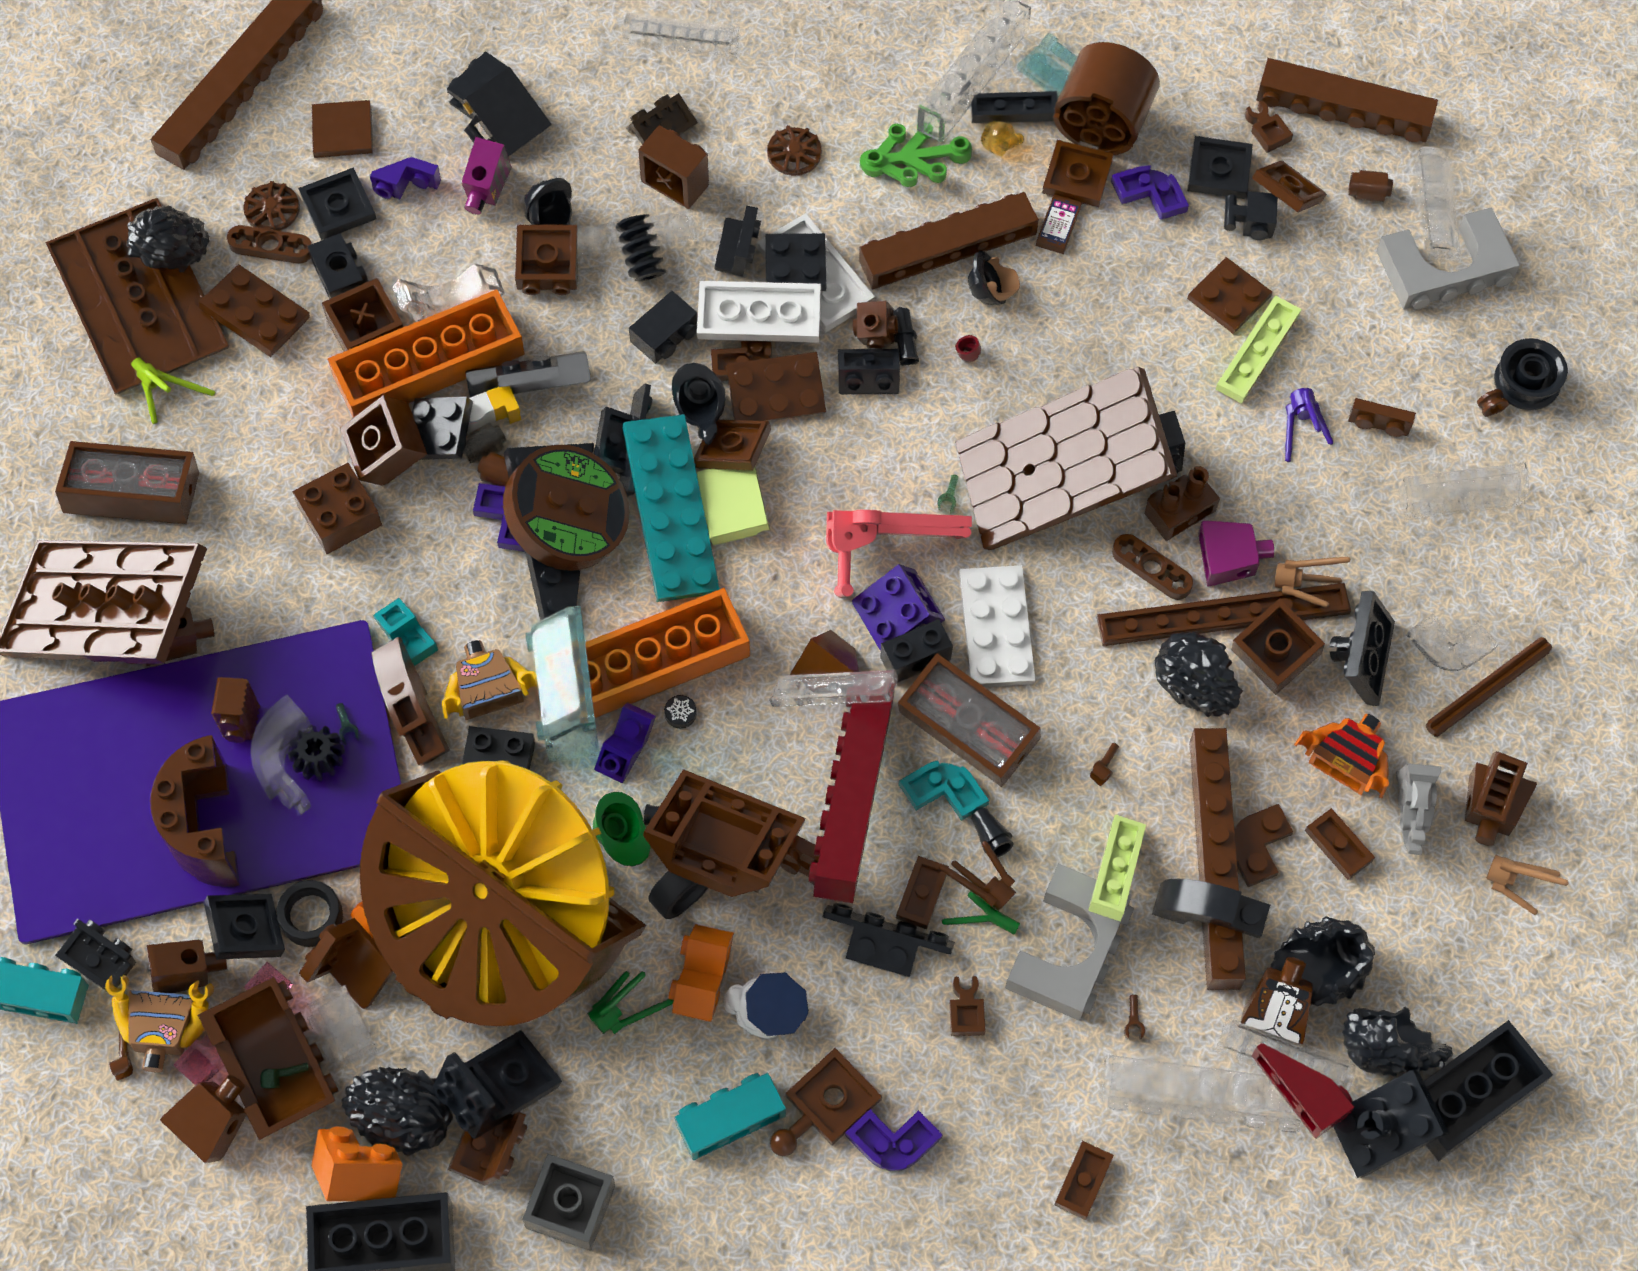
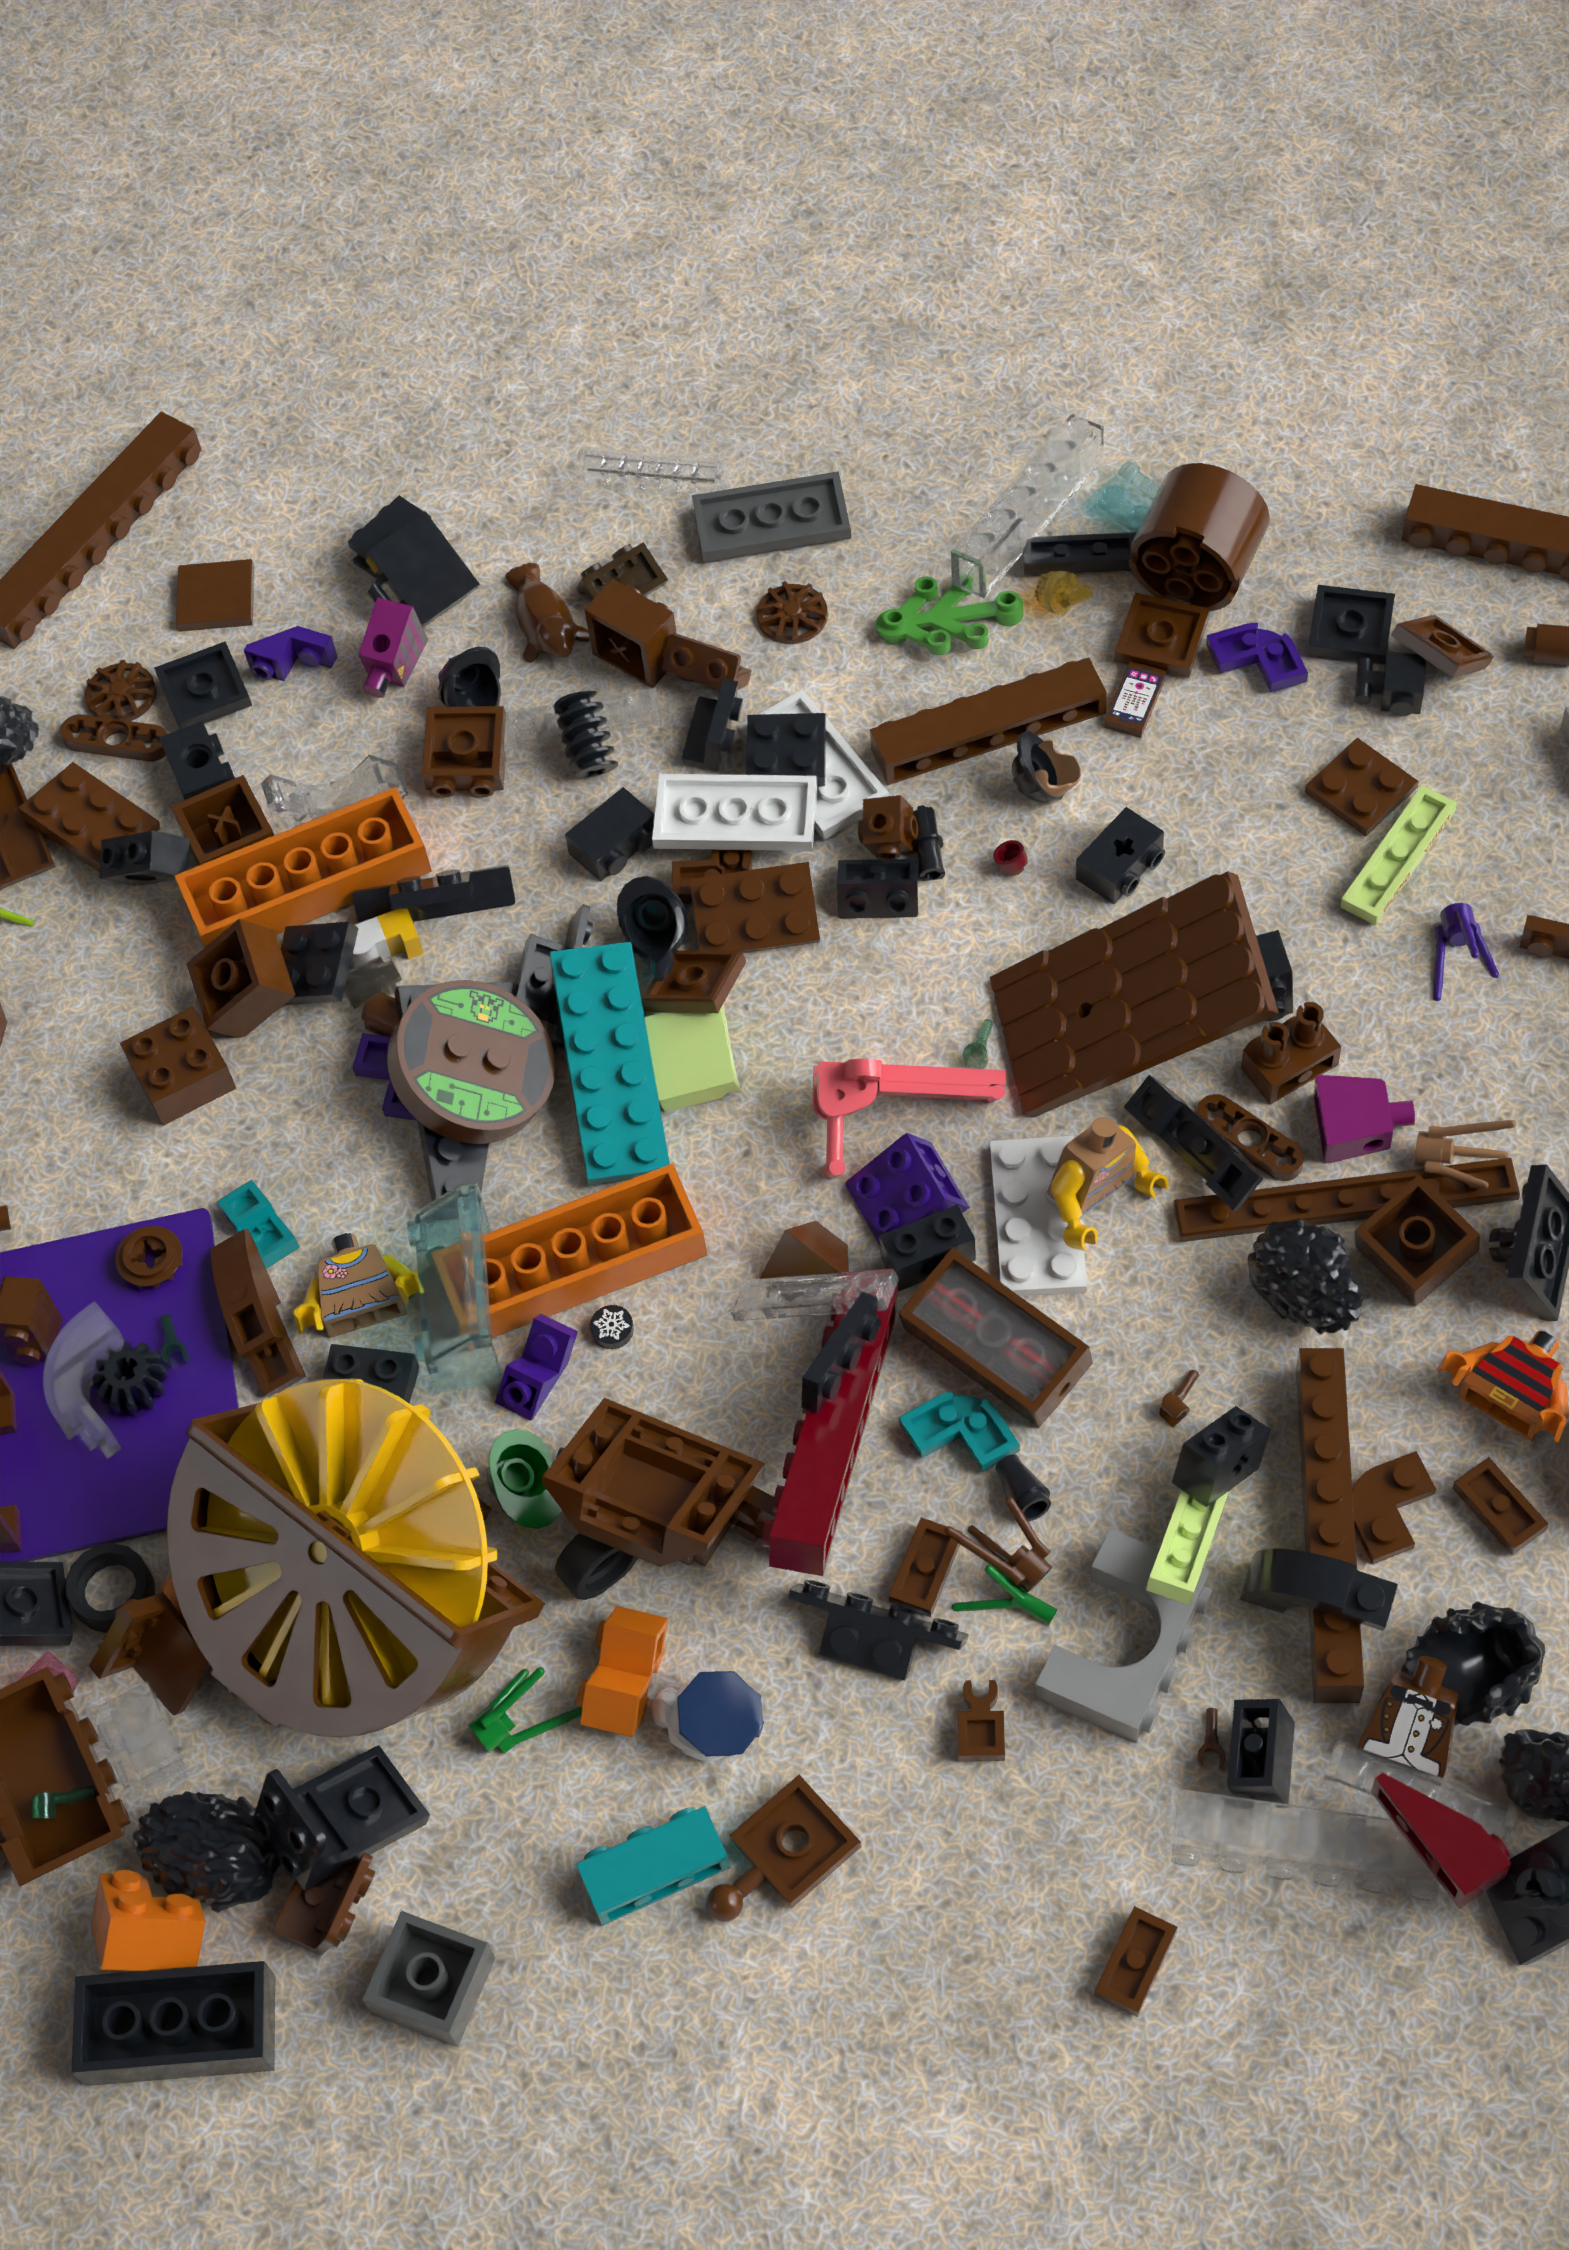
camera: 10 degrees right, 5 degrees down
(302, 343) = (143, 858): none -> black brick
(311, 654) = (133, 1251): none -> reddish brown gear
(601, 149) = (543, 615): none -> reddish brown animal
(729, 191) = (703, 663): none -> reddish brown bracket
(775, 73) = (771, 516): none -> dark grey plate
(859, 735) = (840, 1353): none -> black plate
(890, 1149) = (876, 1915): dark purple plate -> none
(1039, 593) = (1092, 1170): none -> torso
(1051, 348) = (1120, 856): none -> black brick
(1113, 570) = (1196, 1141): none -> black slope
(1138, 809) = (1221, 1456): none -> black brick
(1171, 1028) = (1261, 1756): none -> black brick
(1268, 130) = (1416, 577): reddish brown plate -> none

